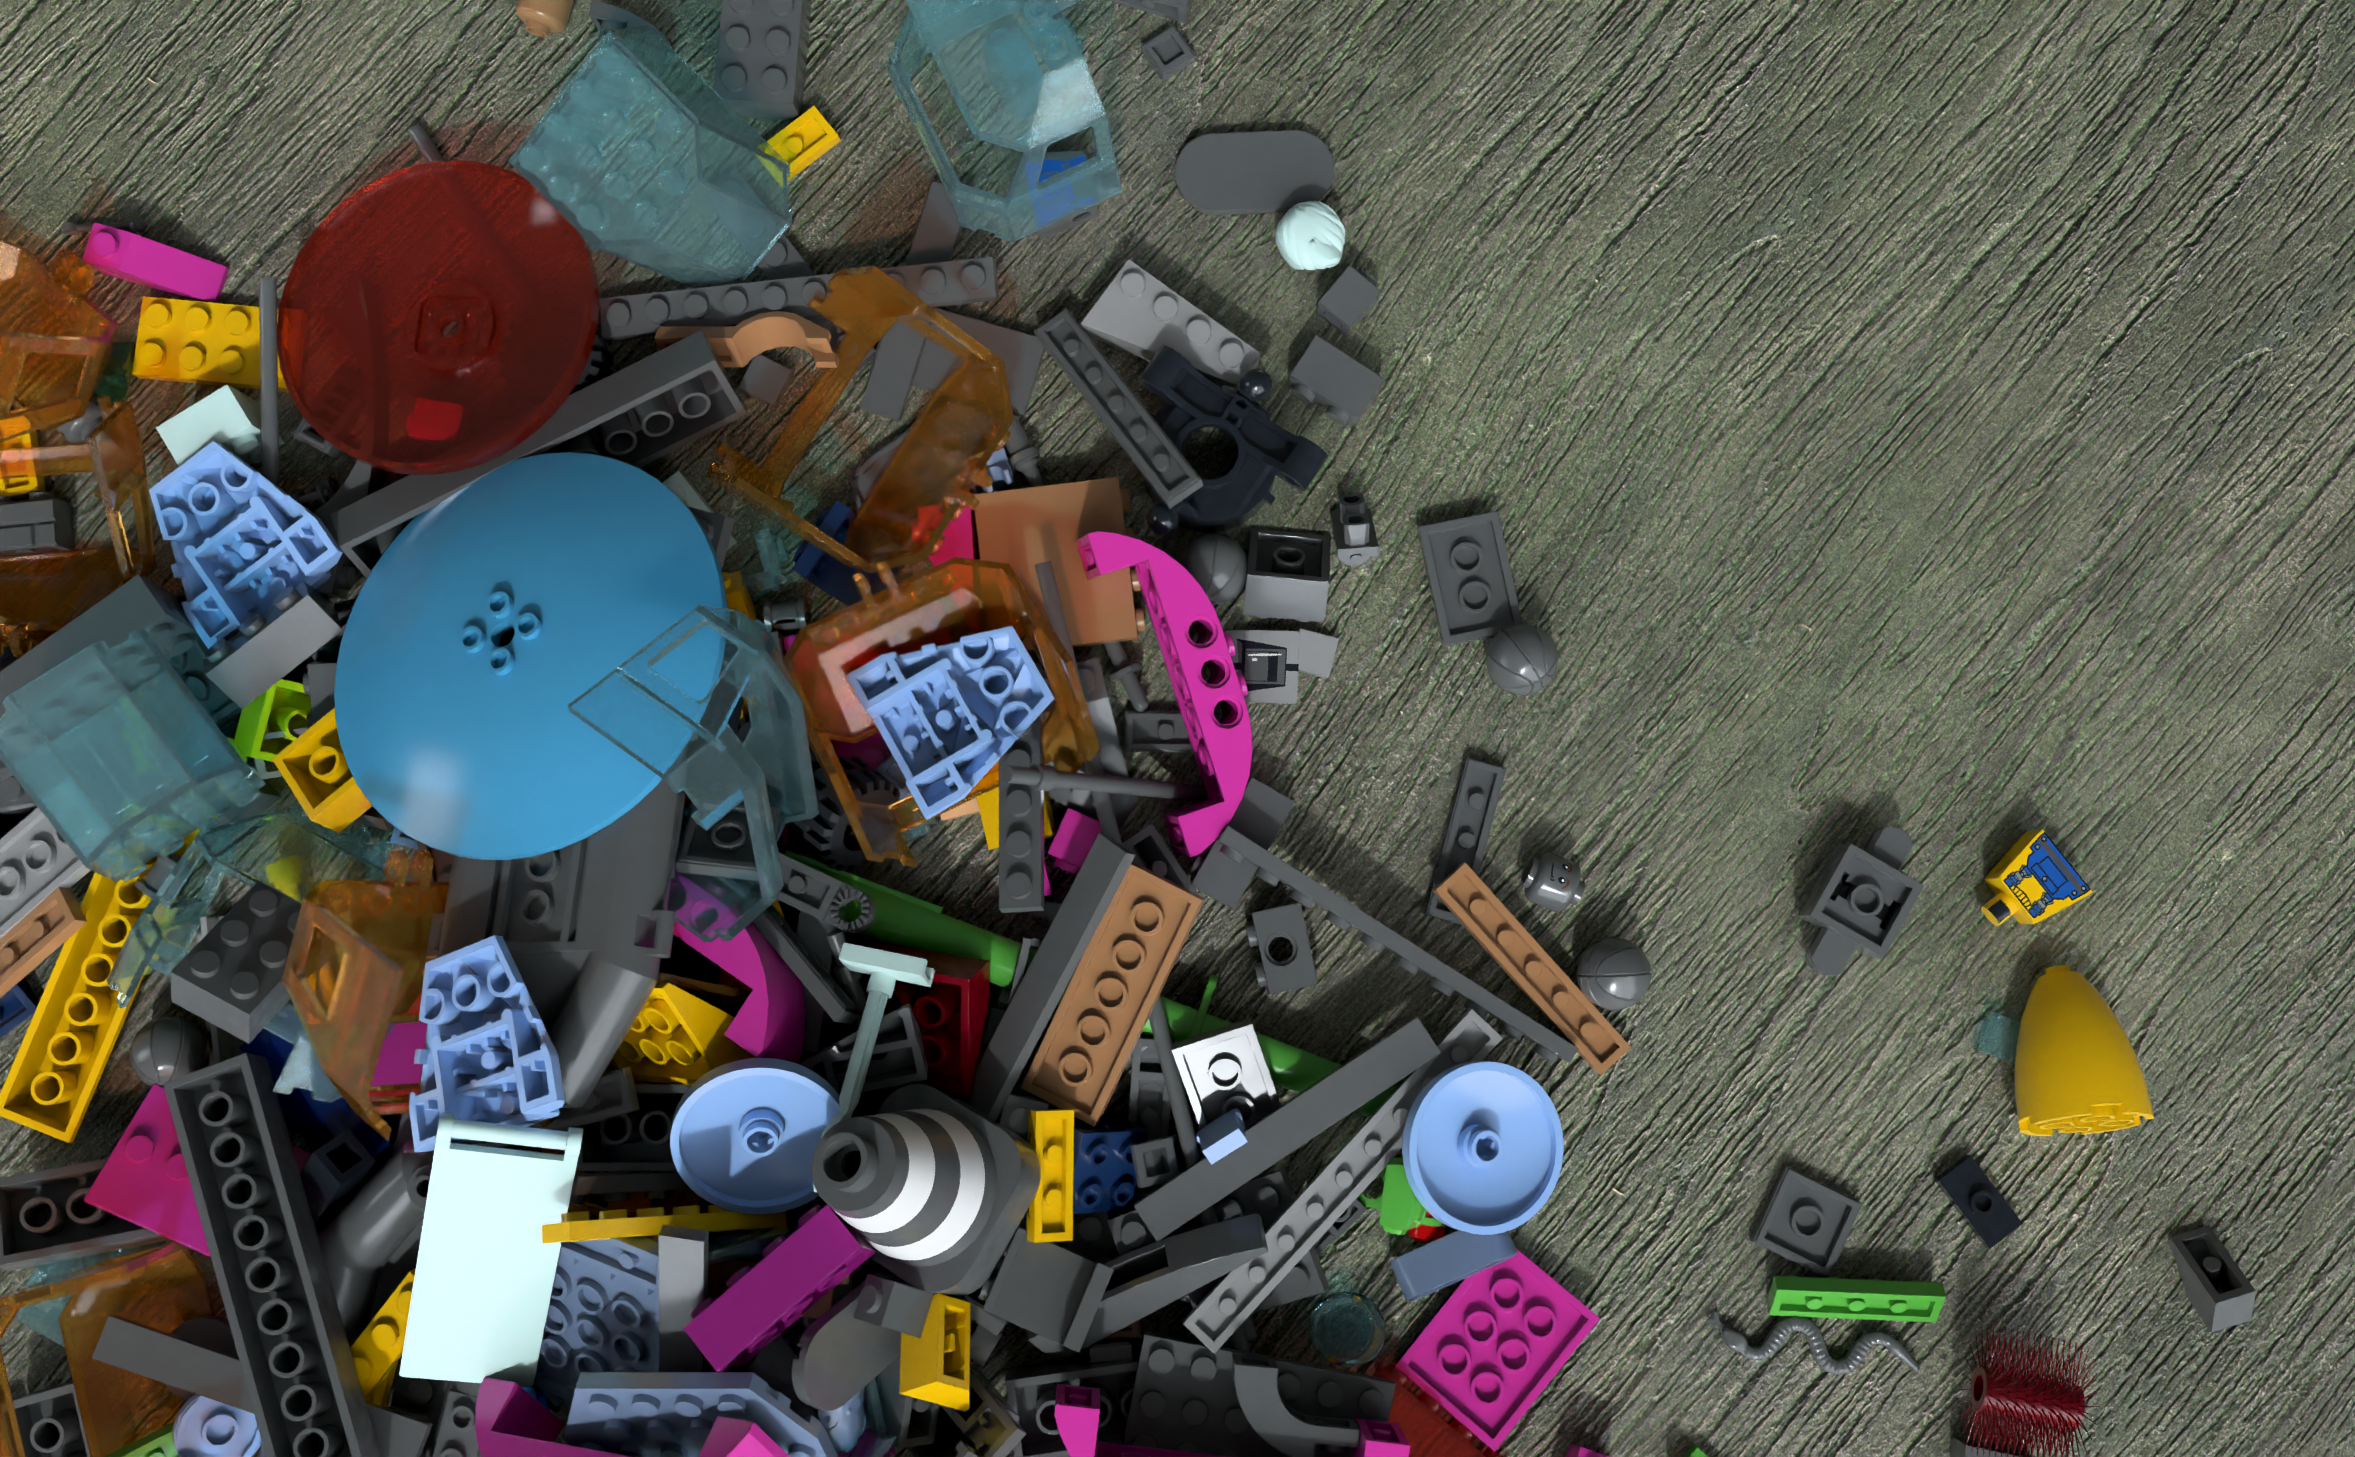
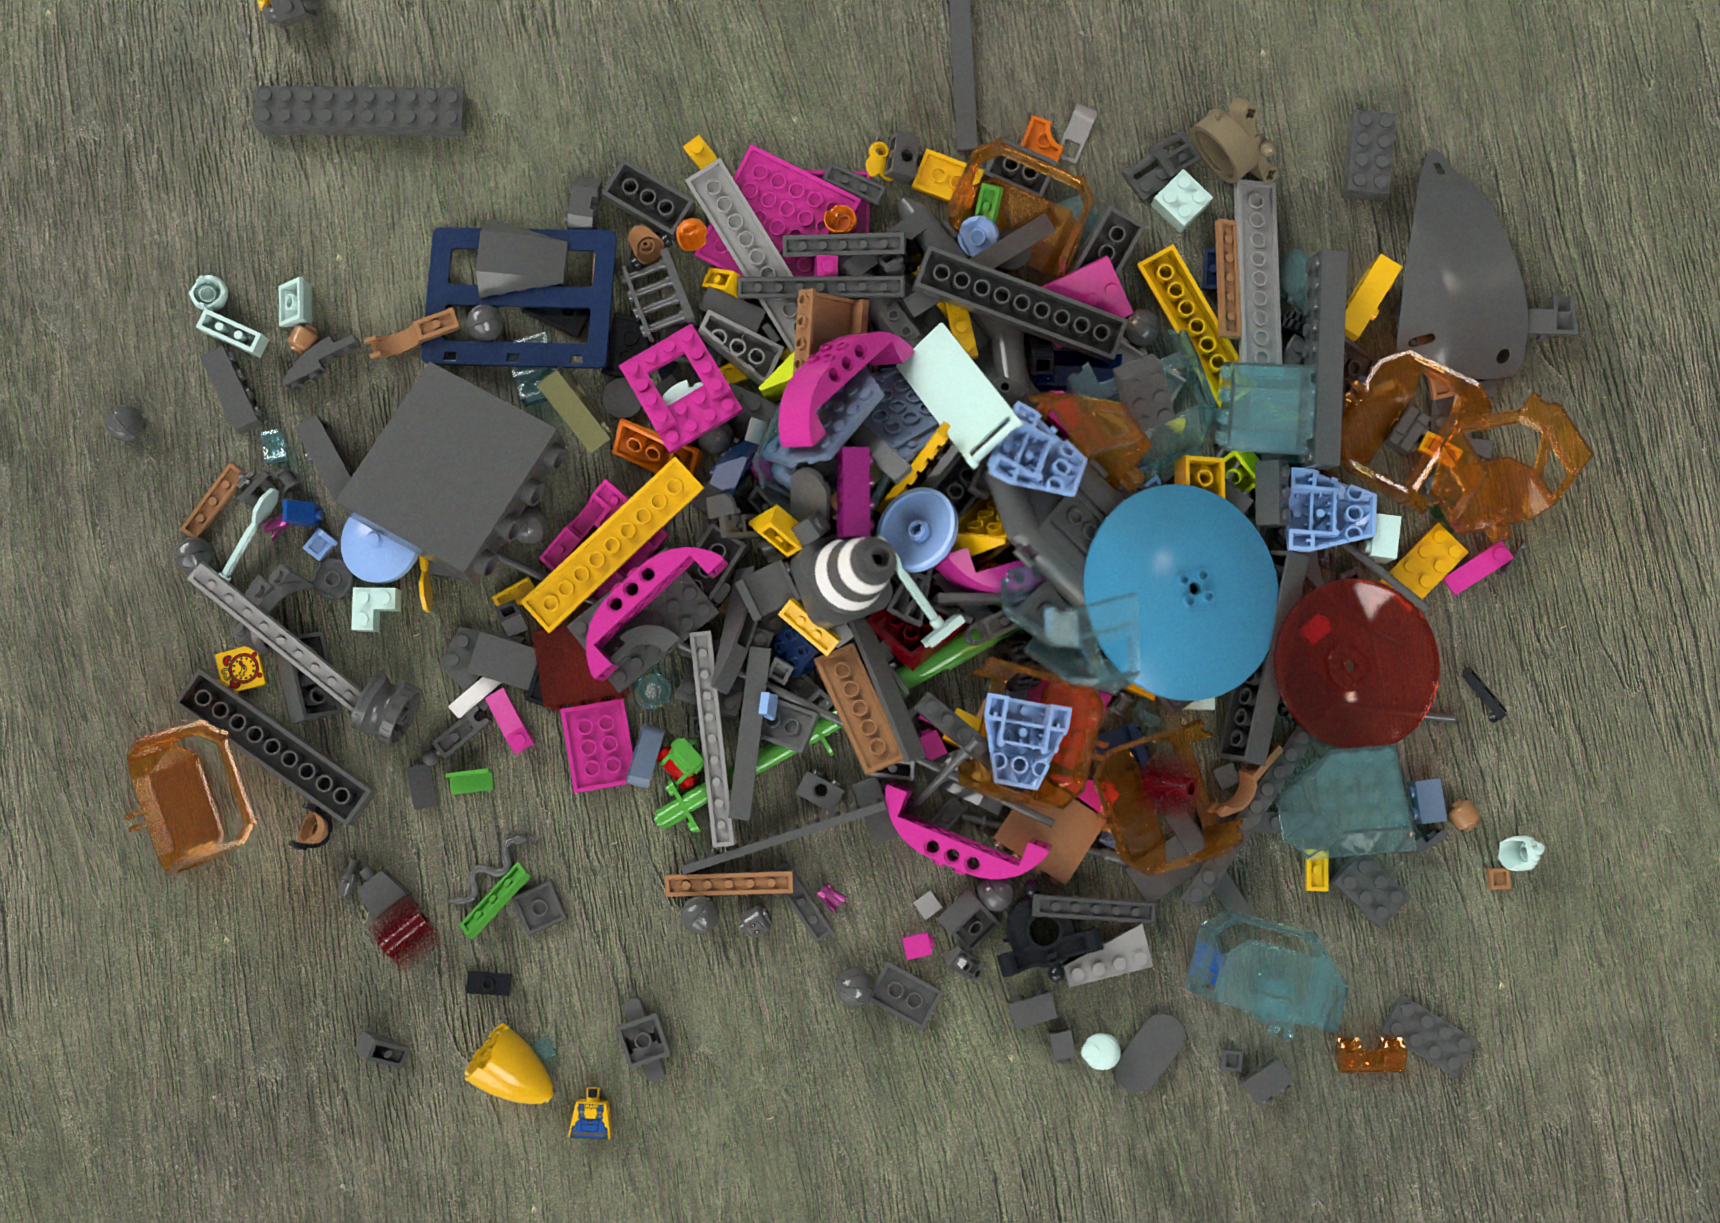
camera: 130 degrees right, 0 degrees up
(157, 874) = (1213, 378): dark grey bush -> none
(351, 72) = (1485, 694): none -> black hinge
(557, 63) = (1427, 801): none -> sand blue brick
(843, 443) = (1169, 784): none -> dark red piece
(1268, 664) = (939, 881): sticker -> none
(1383, 618) = (918, 945): none -> dark pink brick
(1422, 807) = (830, 897): none -> flat silver piece
(1482, 1147) = (678, 803): light blue dish -> none

